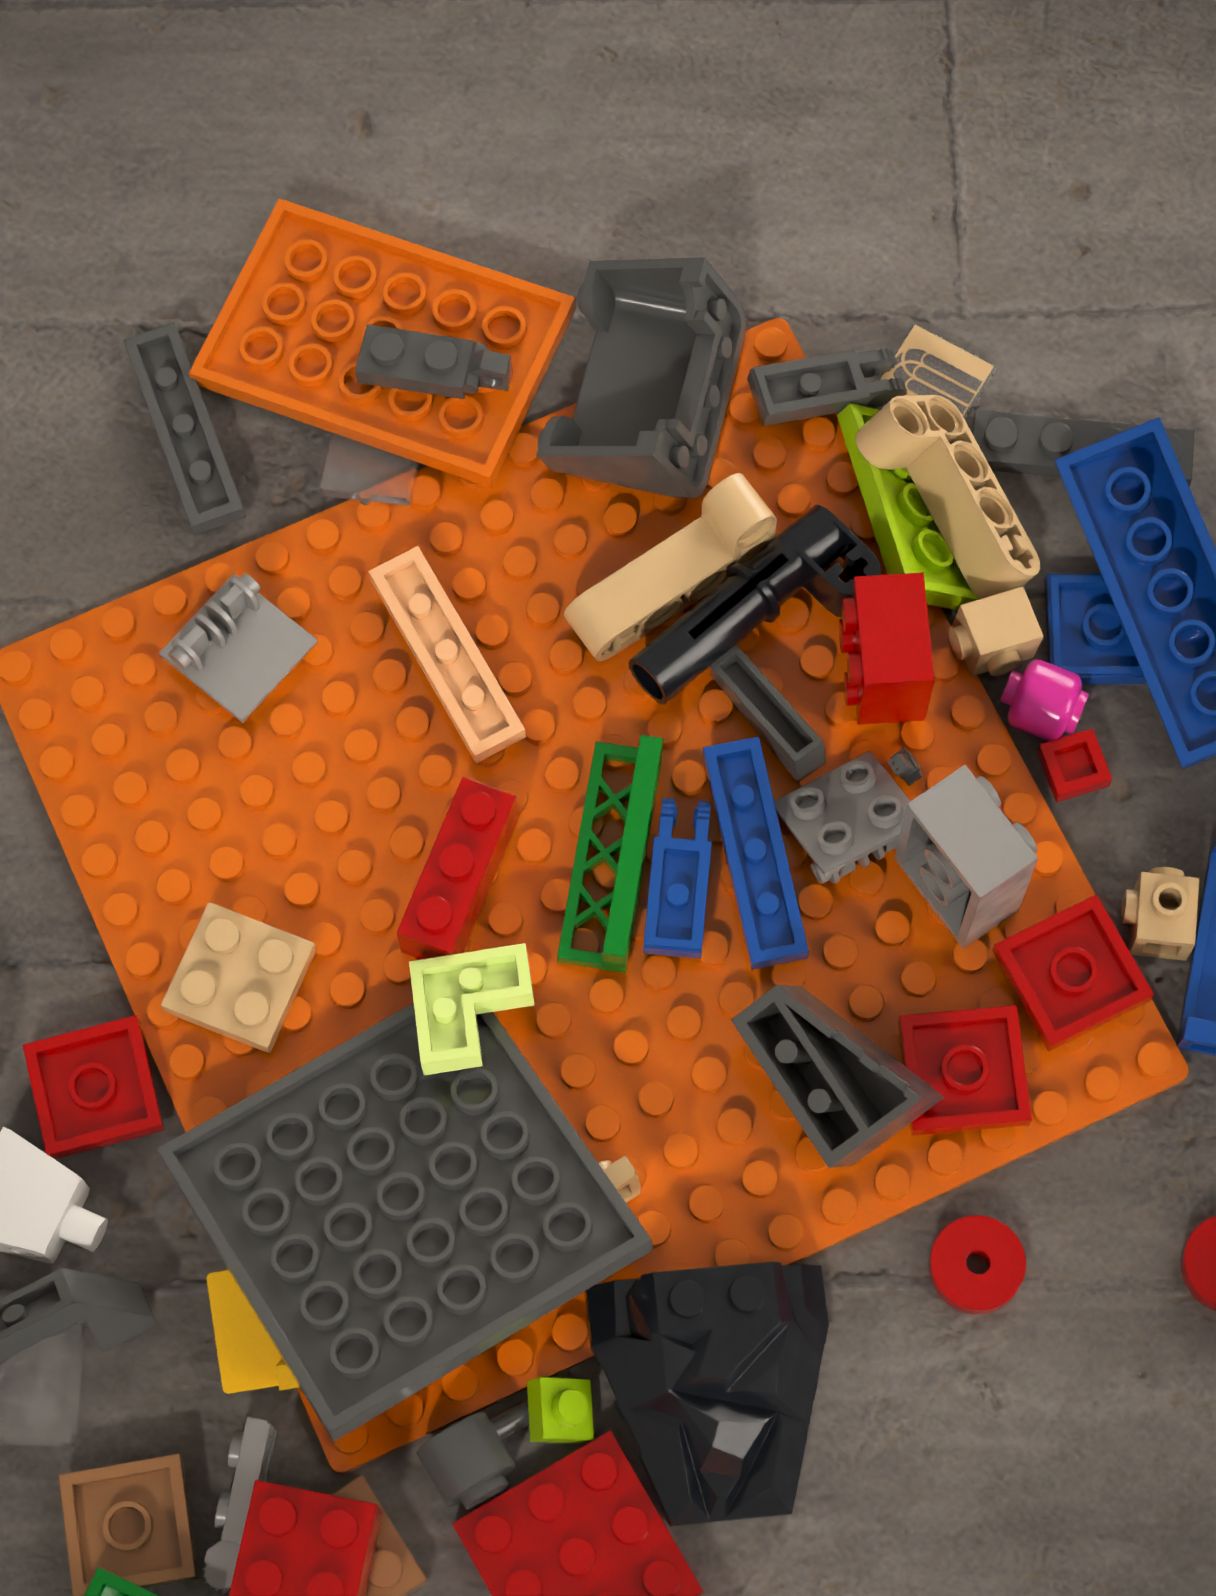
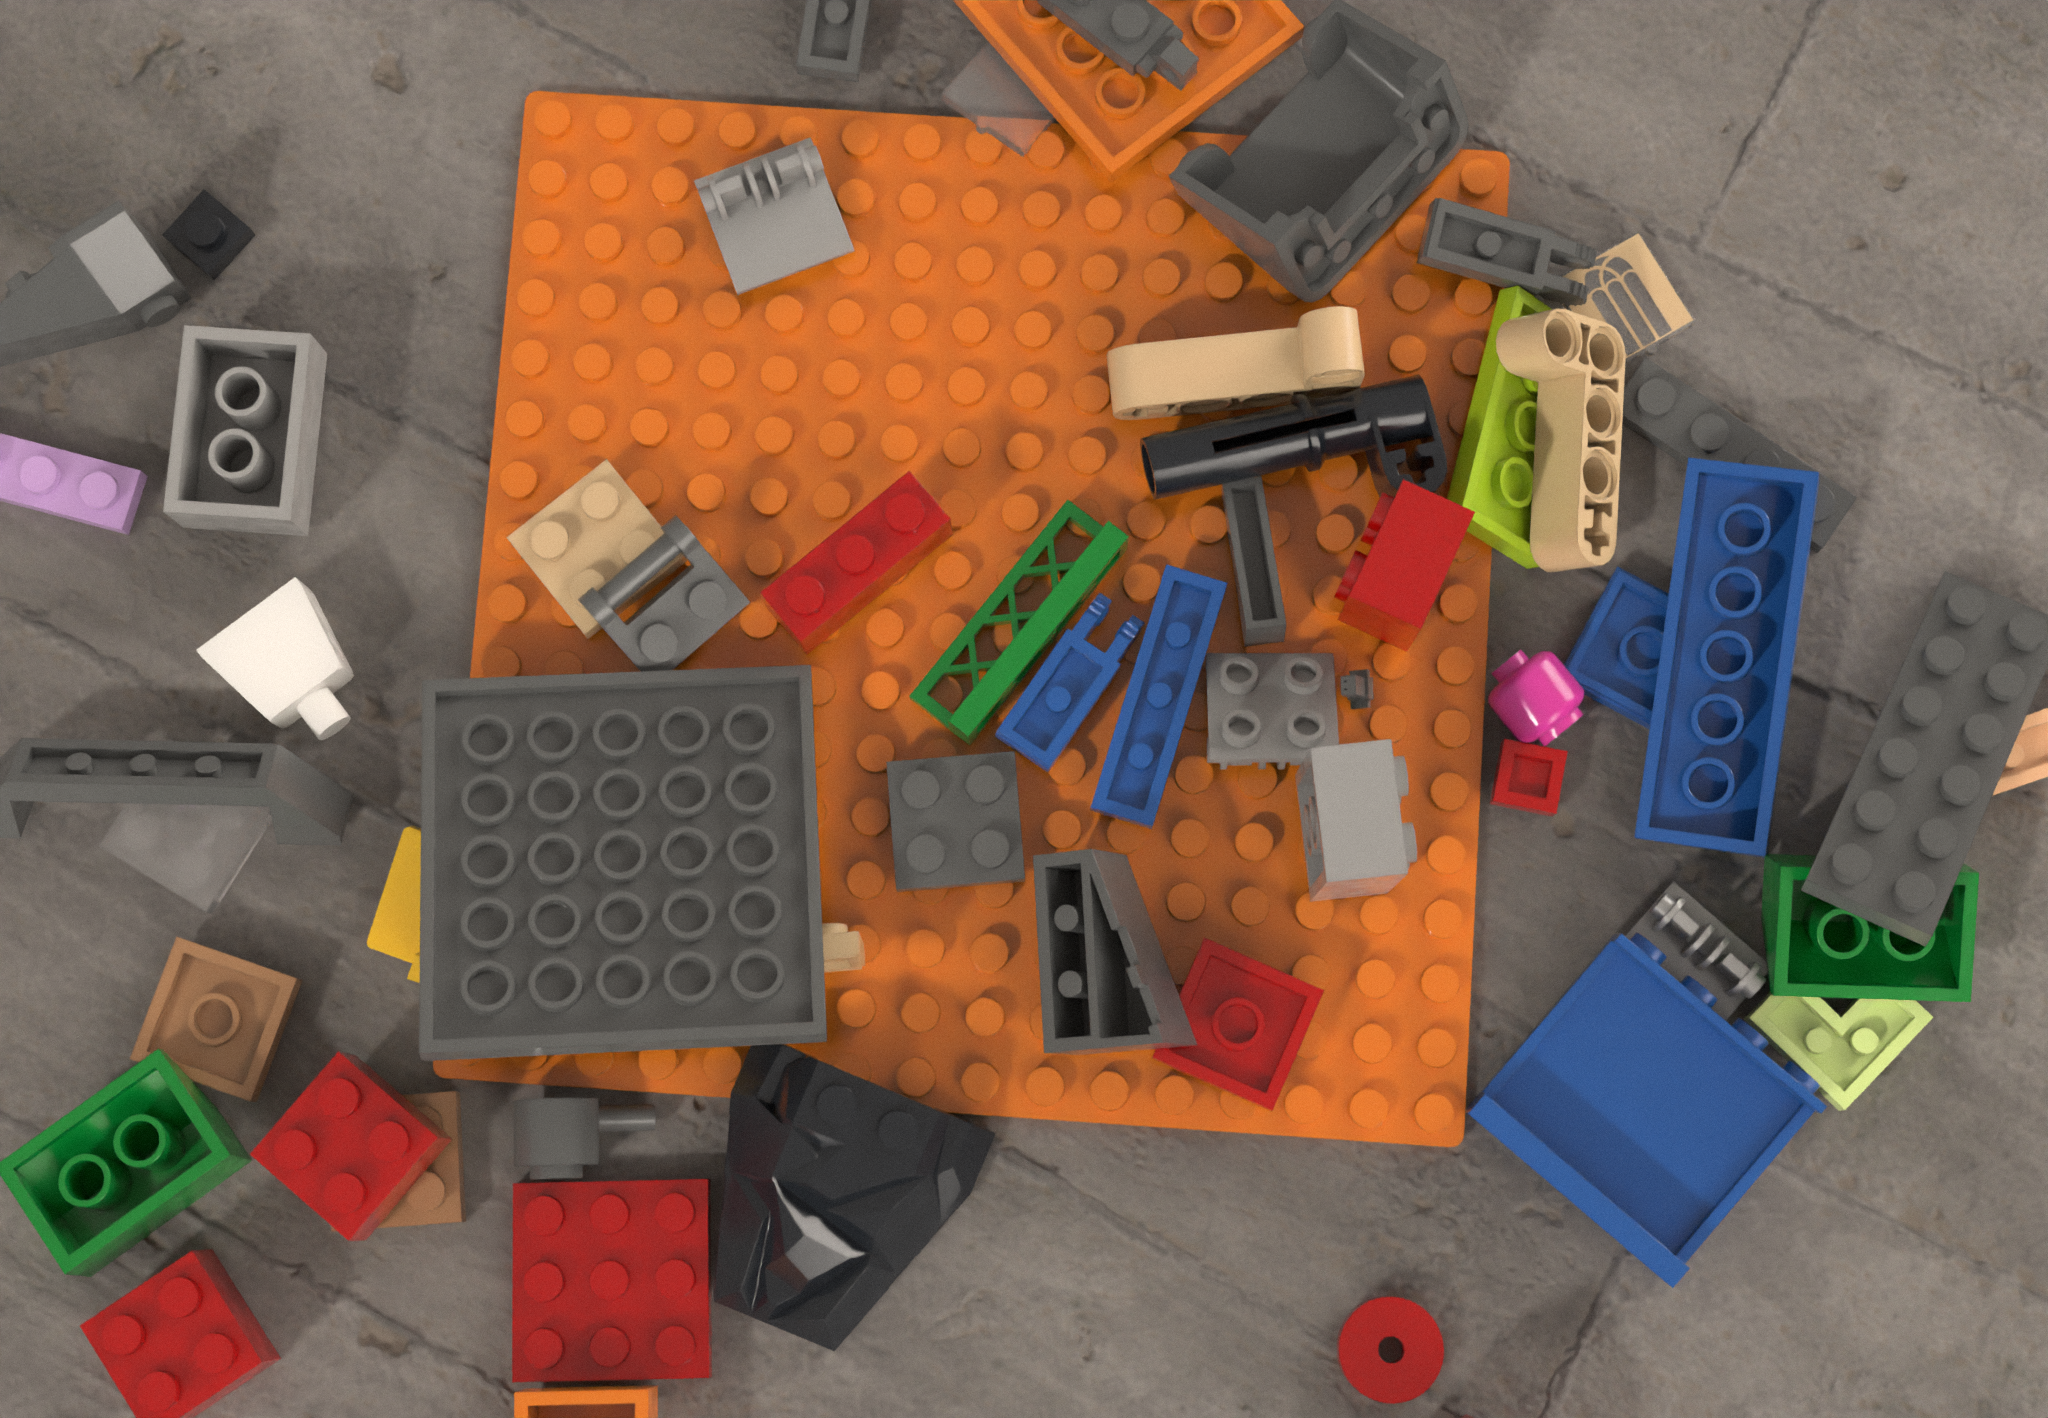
camera: 30 degrees right, 10 degrees up
(93, 1087) = (405, 581): red plate -> none
(251, 1456) = (362, 1019): light grey hinge -> none
(336, 991) = (677, 616): none -> dark grey plate
(447, 654) = (971, 332): light nougat plate -> none
(457, 988) = (783, 681): yellowish green plate -> none
(560, 1410) = (670, 1134): lime plate -> none
(650, 1036) = (955, 821): none -> dark grey plate
(984, 1238) = (1175, 1221): red piece -> none
(996, 633) = (1526, 602): tan brick -> none
(1072, 972) = (1400, 986): red plate -> none
(1162, 914) = (1526, 973): tan brick -> none

